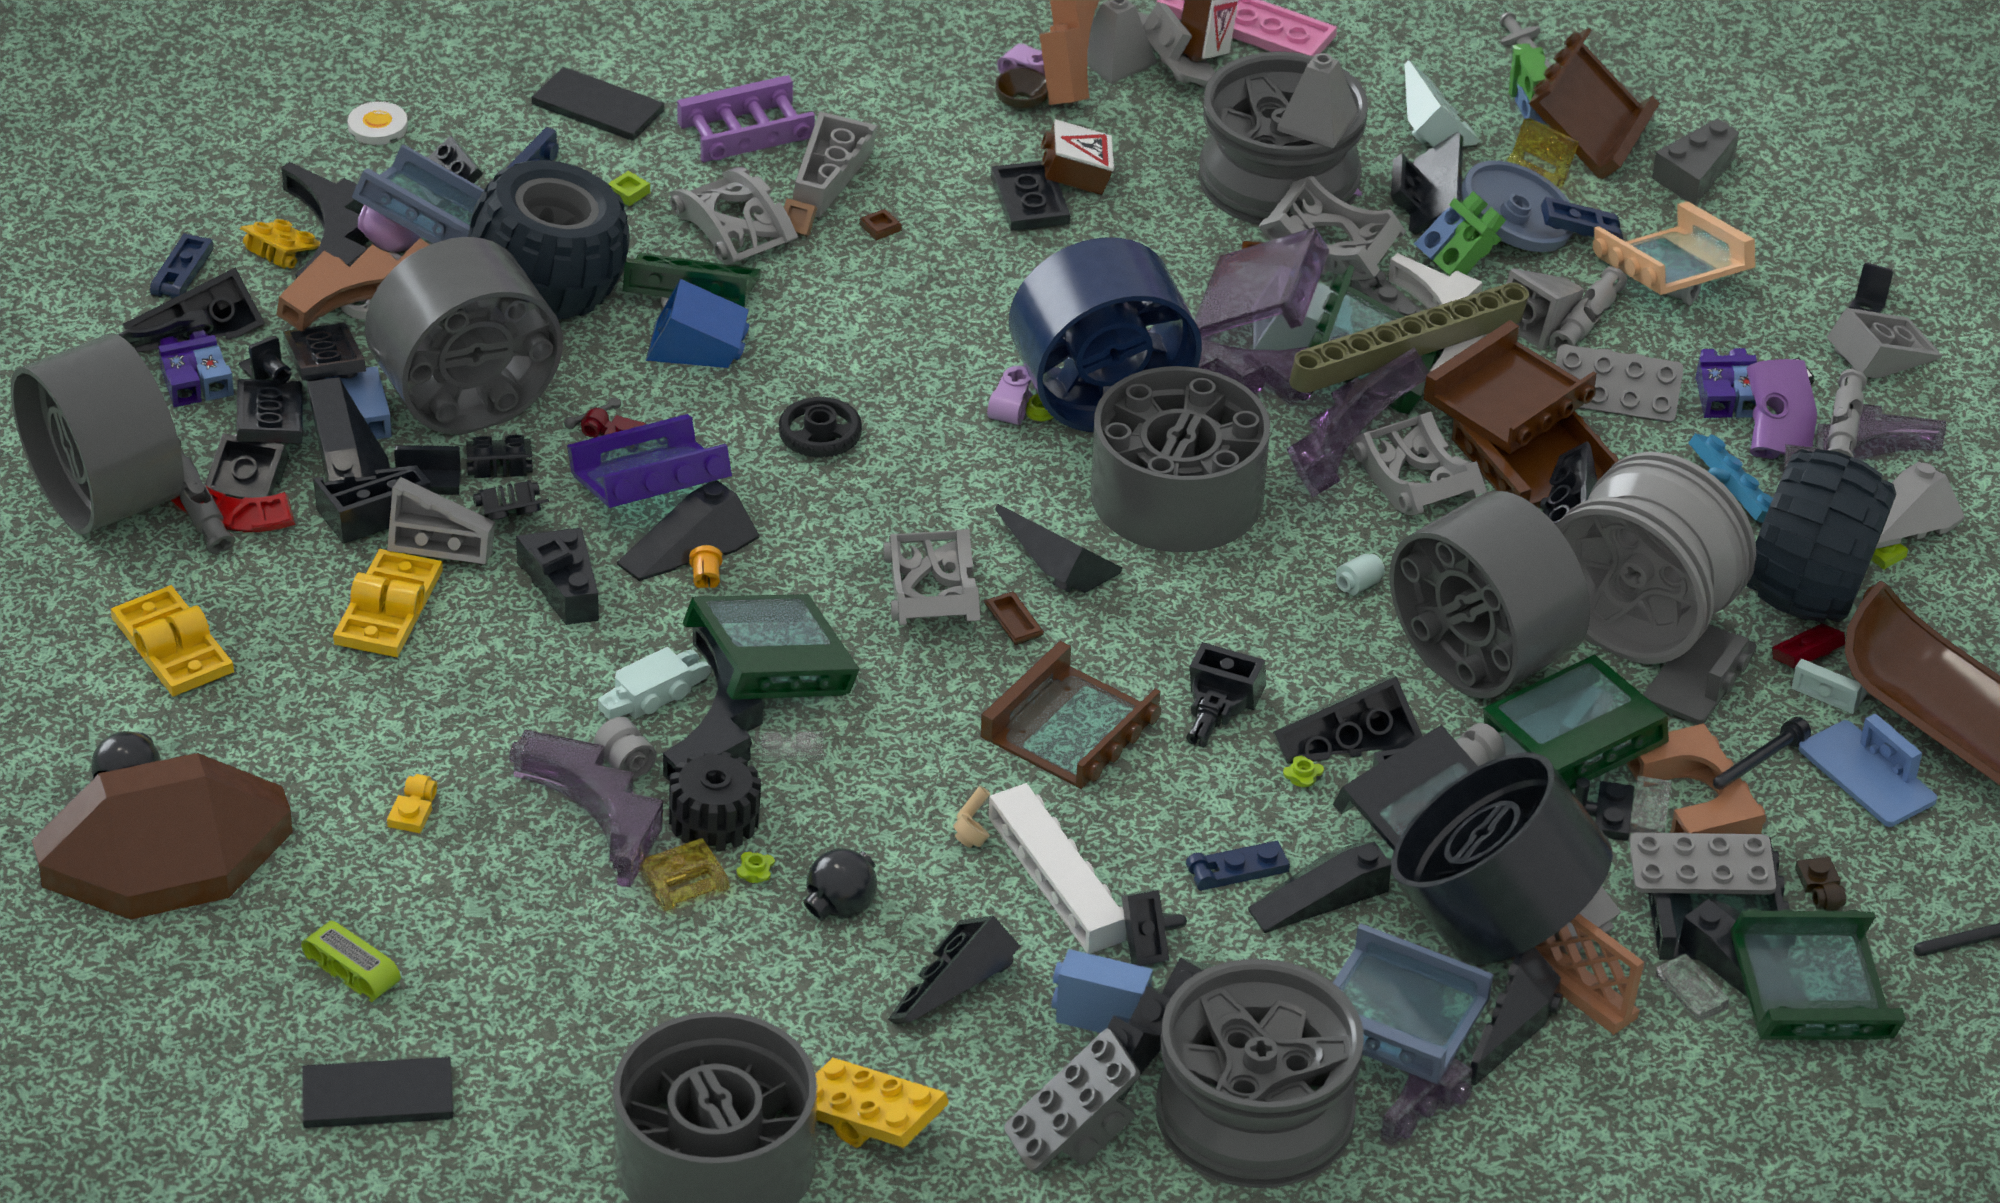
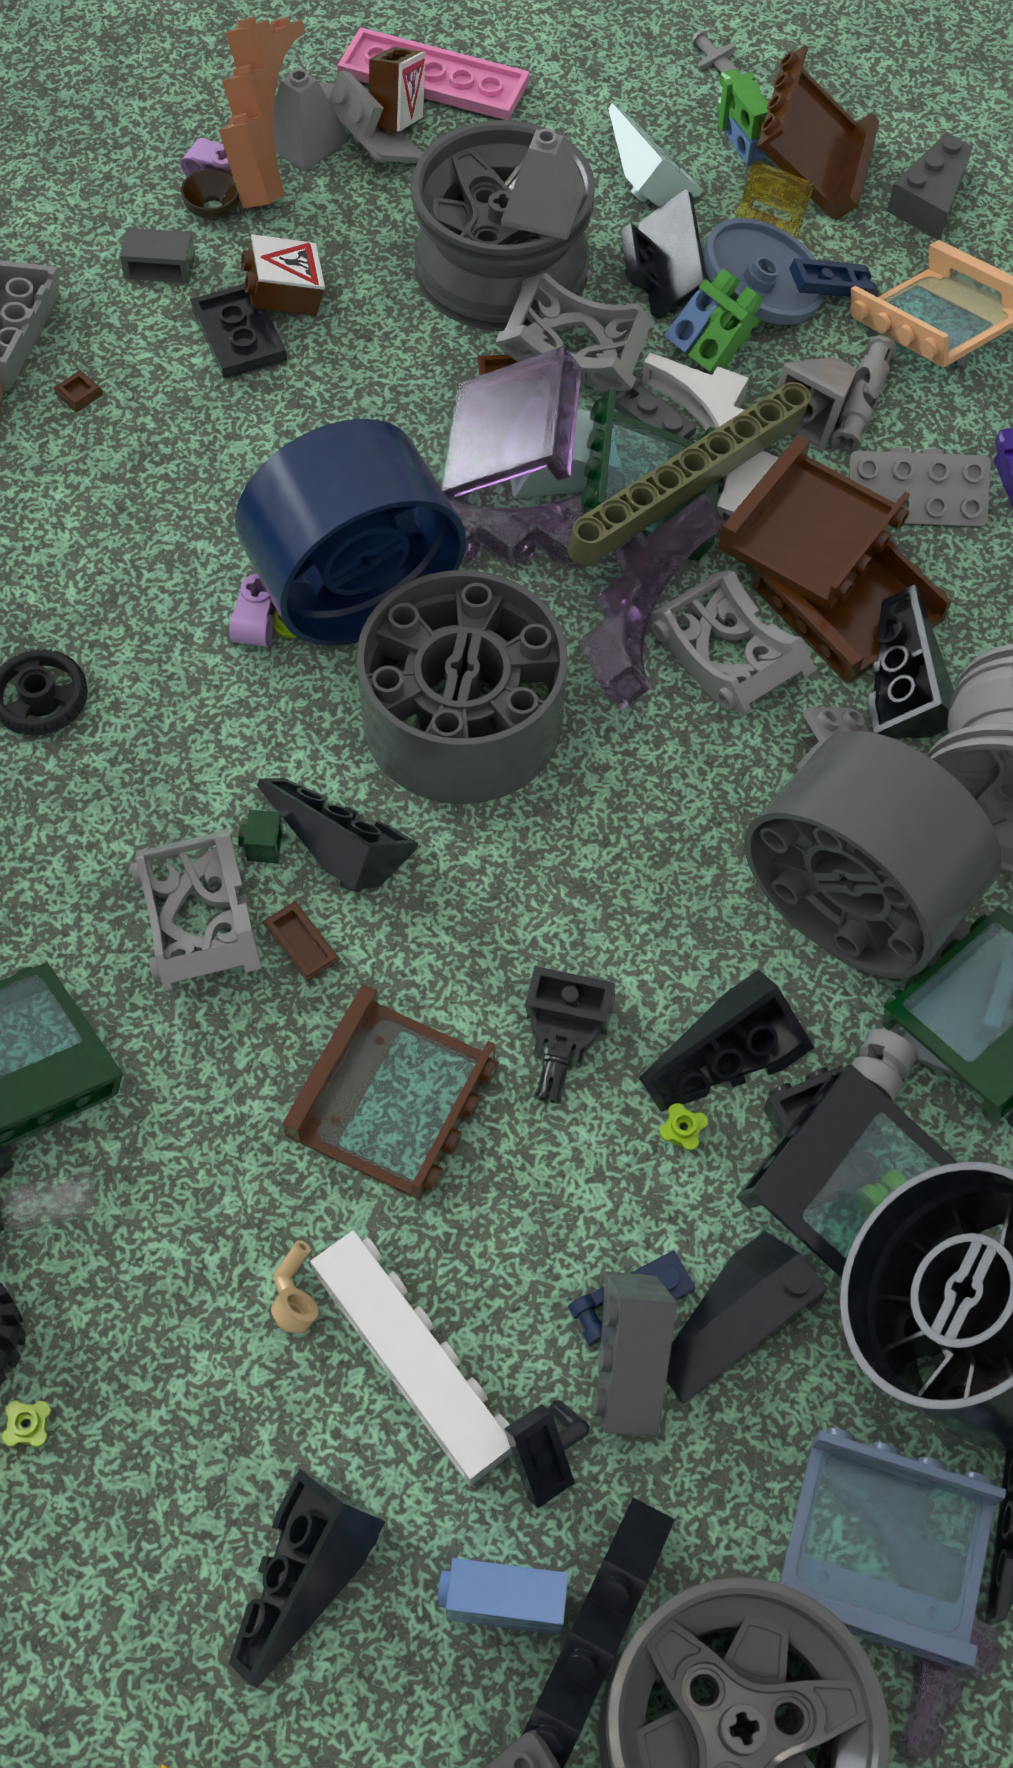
camera: 10 degrees left, 20 degrees up
(840, 884) = (138, 1446): black brick -> none
(966, 130) = (157, 255): none -> dark grey piece
(993, 544) = (261, 836): none -> dark green plate
(1228, 879) = (633, 1354): none -> dark grey wedge
(1360, 573) = (692, 806): light aqua brick -> none

